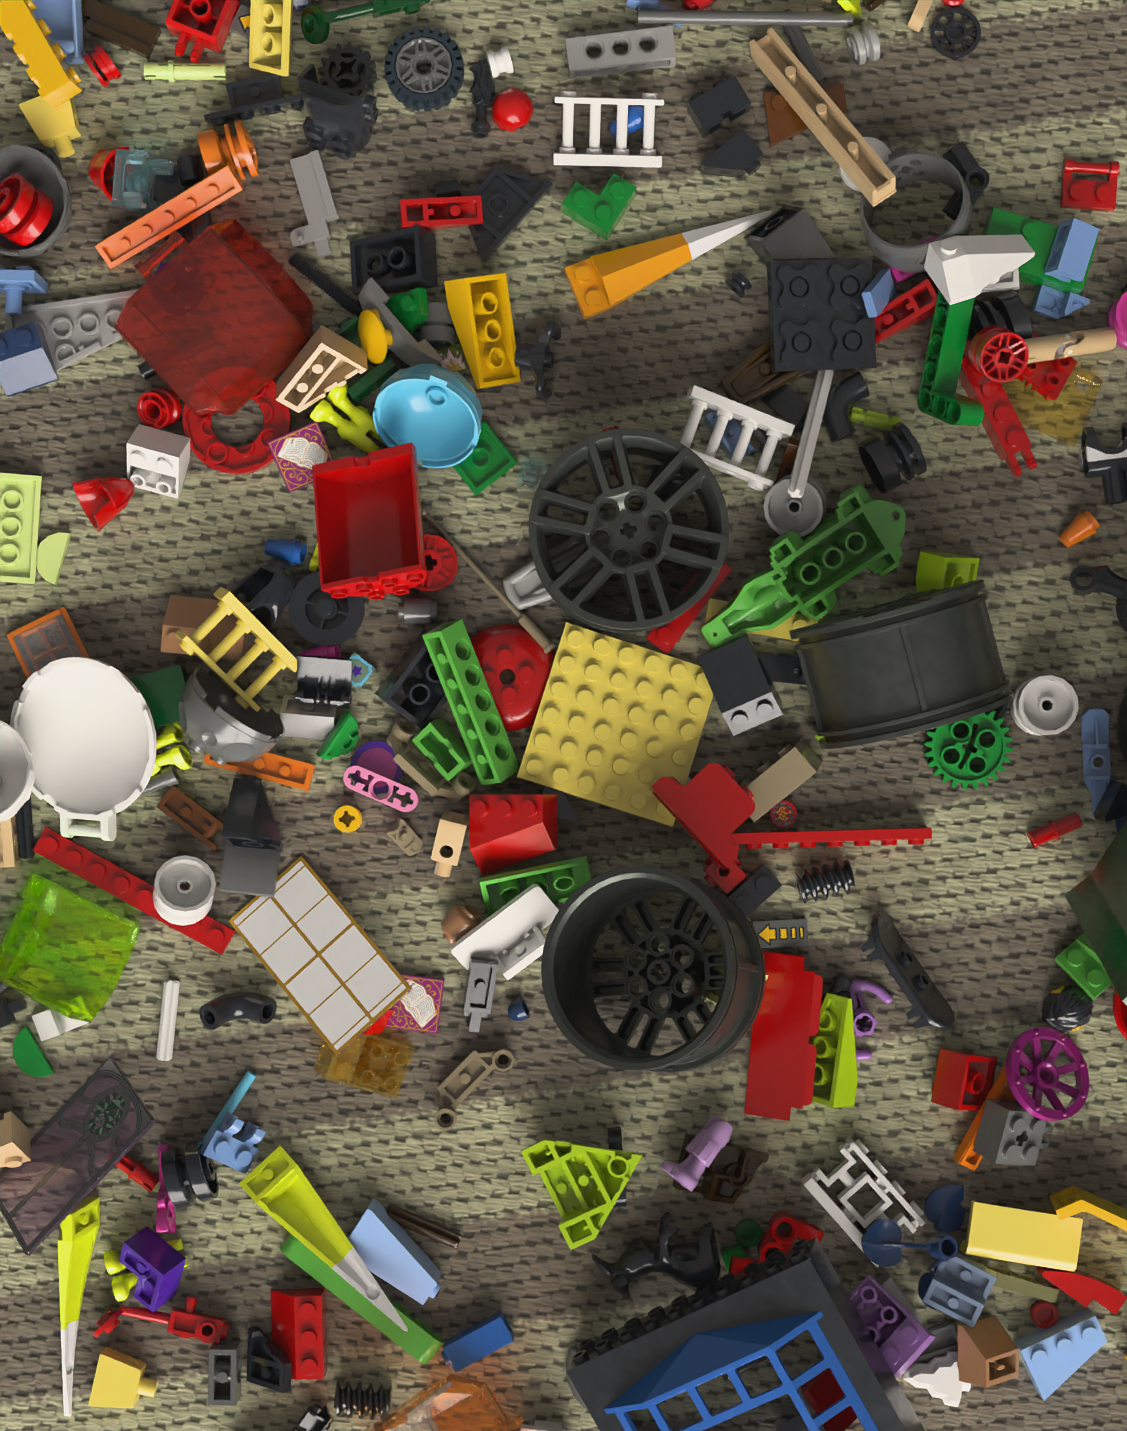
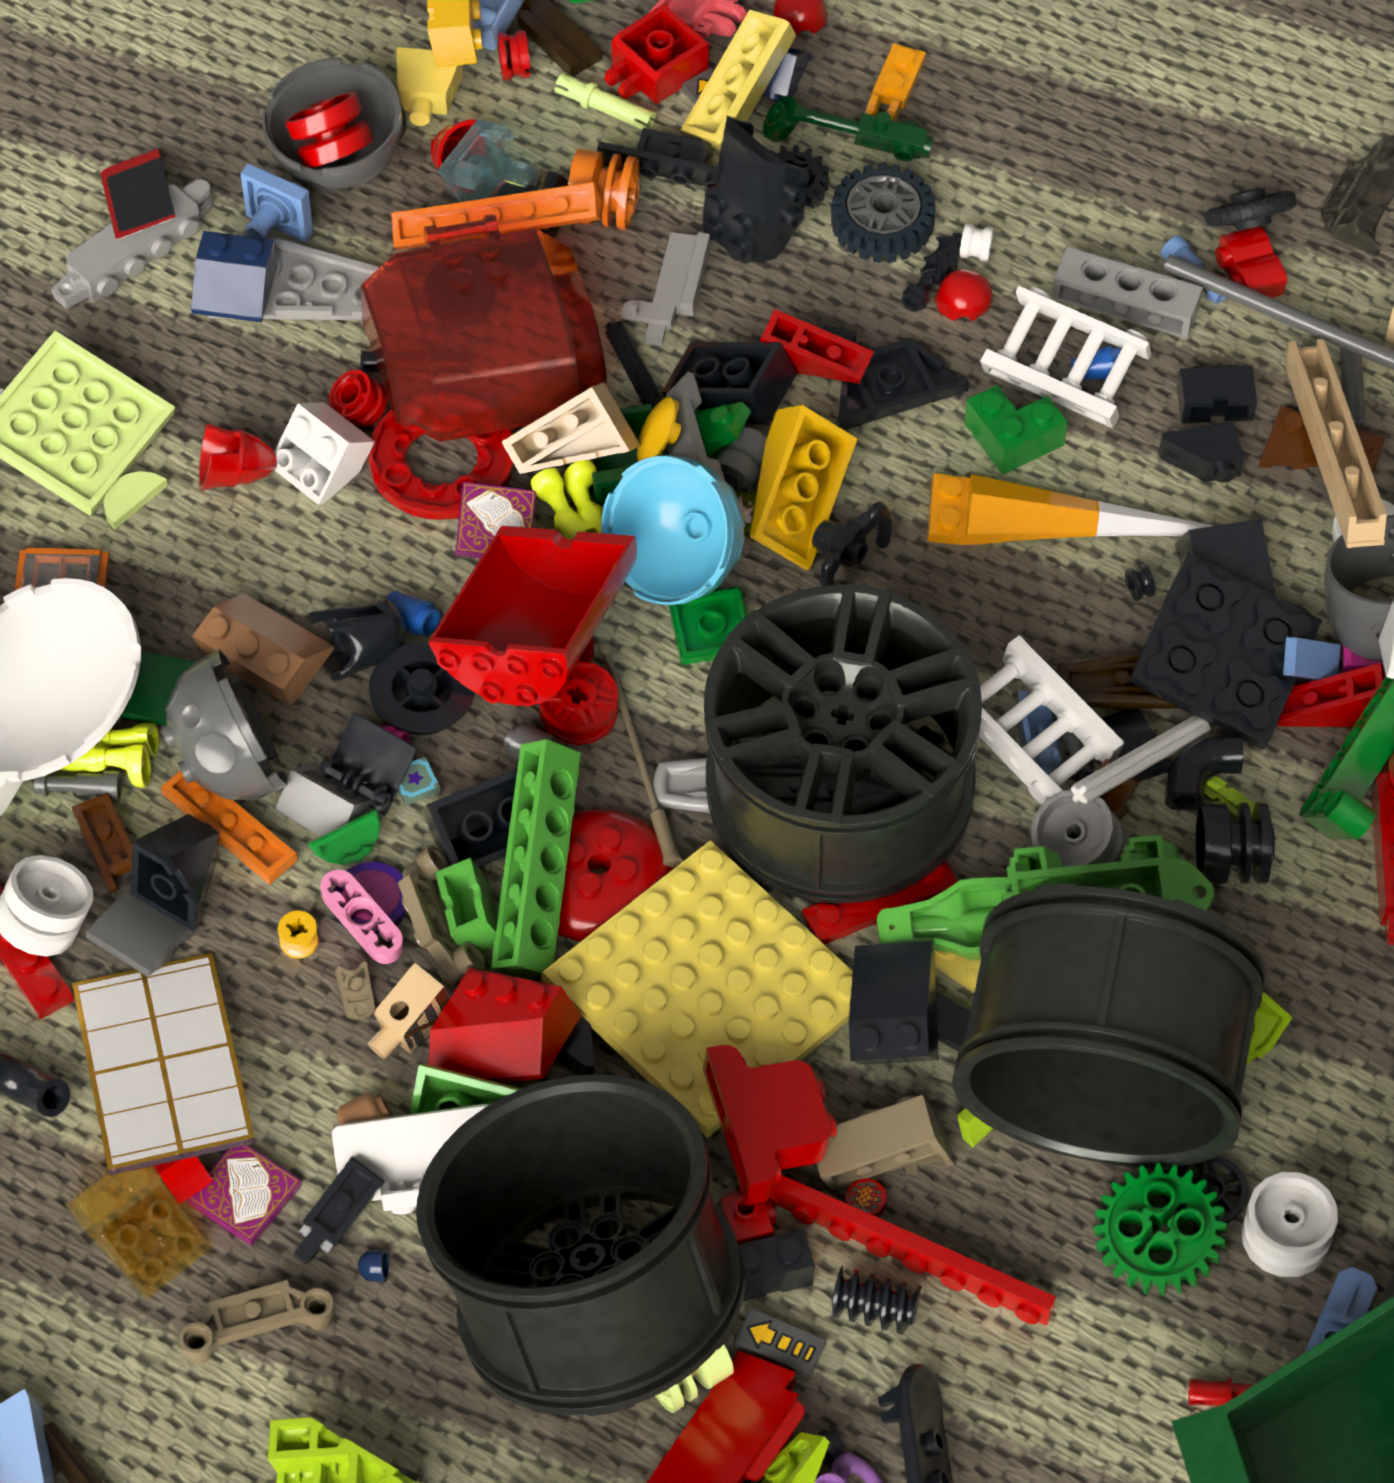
camera: 25 degrees right, 30 degrees down
(245, 624) = (315, 644): light yellow fence -> none

